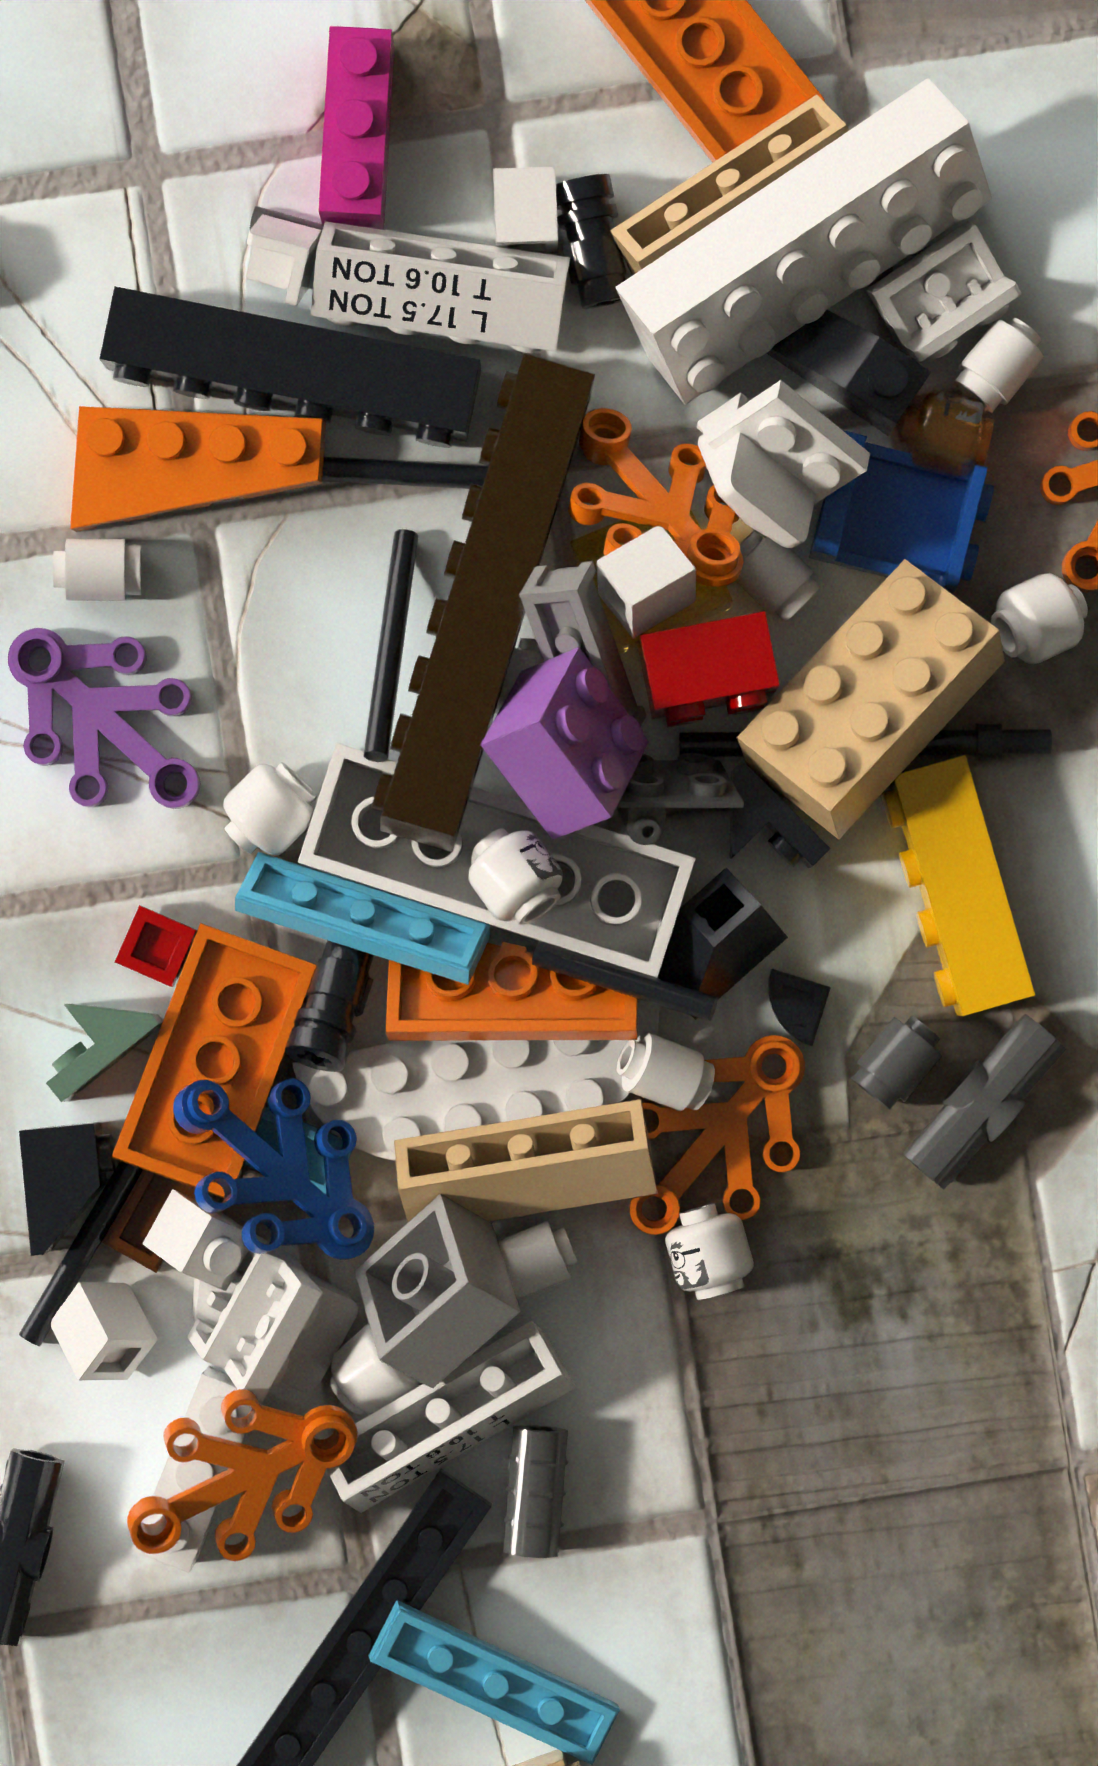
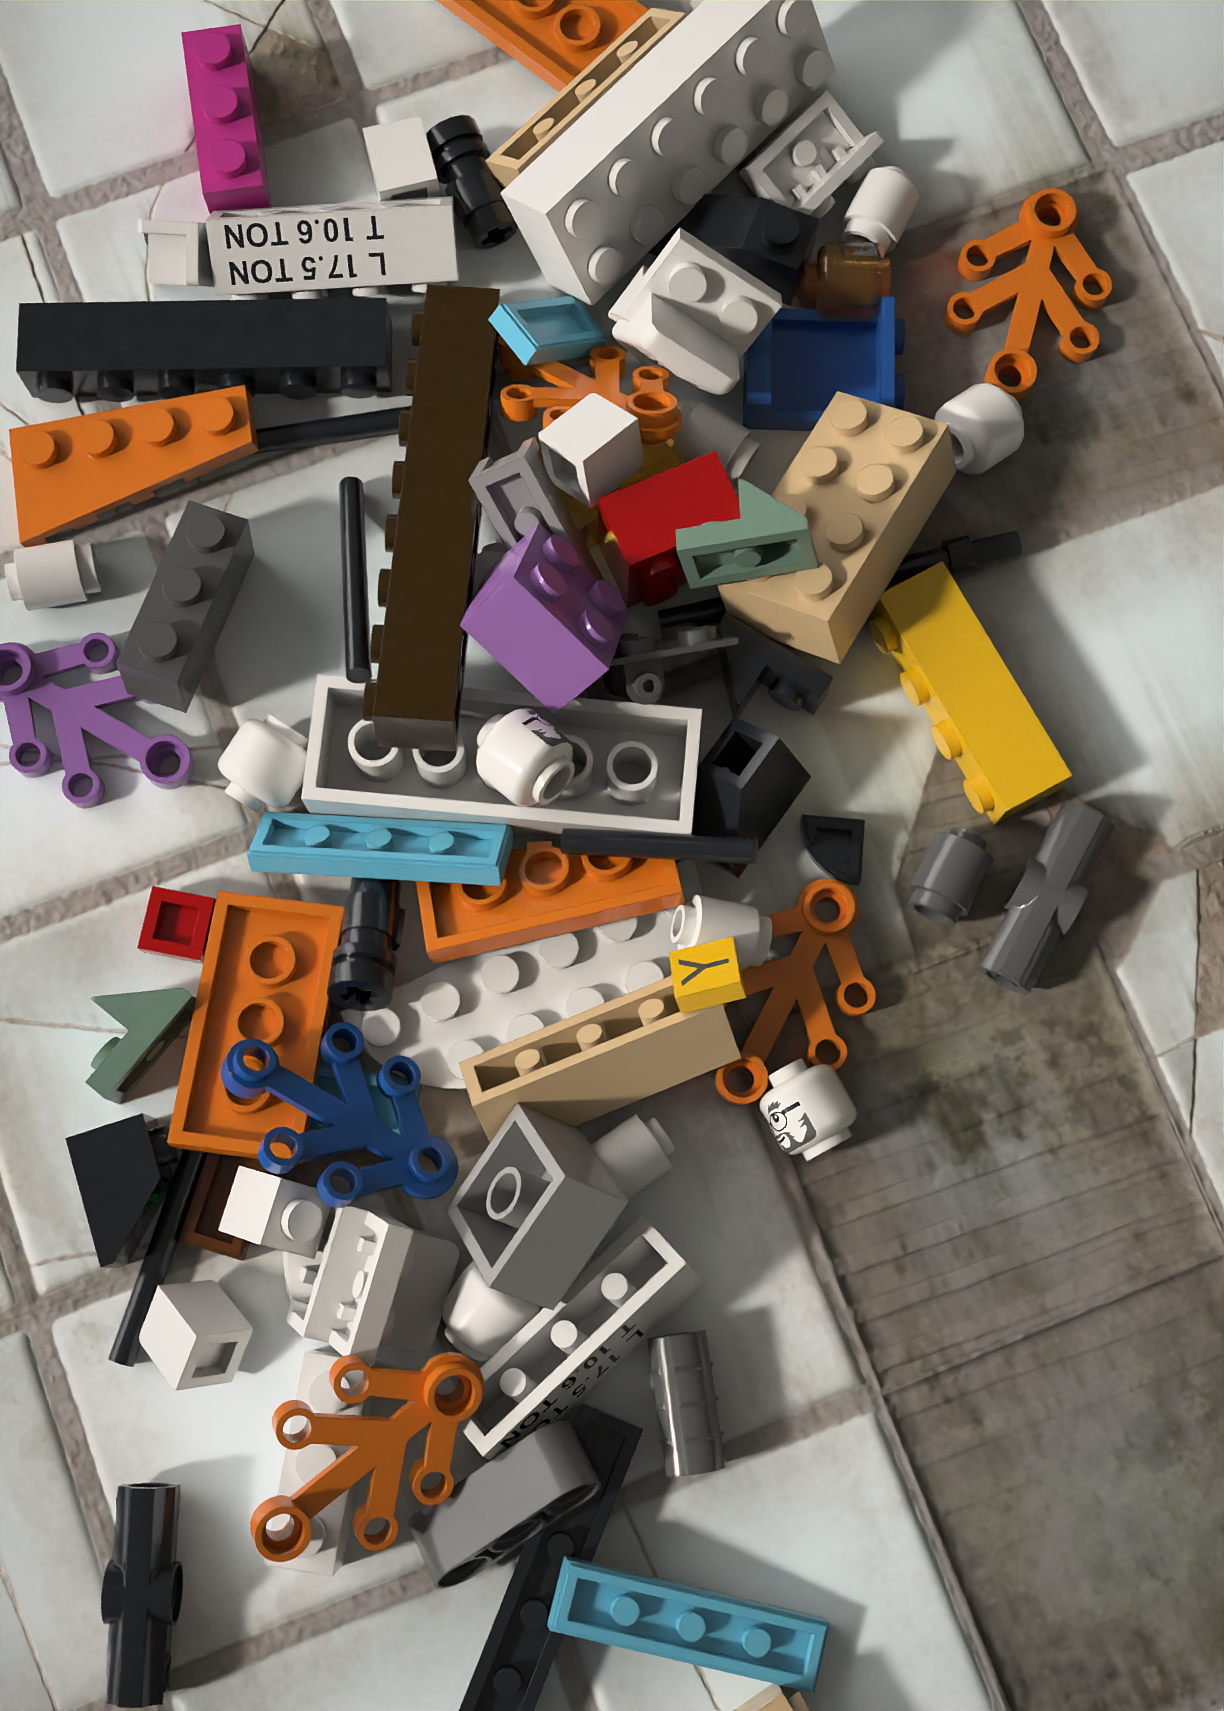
camera: 15 degrees left, 10 degrees down
(223, 637) = (186, 606): none -> dark grey brick
(353, 1544) = (504, 1504): none -> beam
(634, 426) = (547, 329): none -> medium azure tile
(640, 1116) = (707, 975): none -> yellow tile
(783, 722) = (760, 544): none -> sand green slope

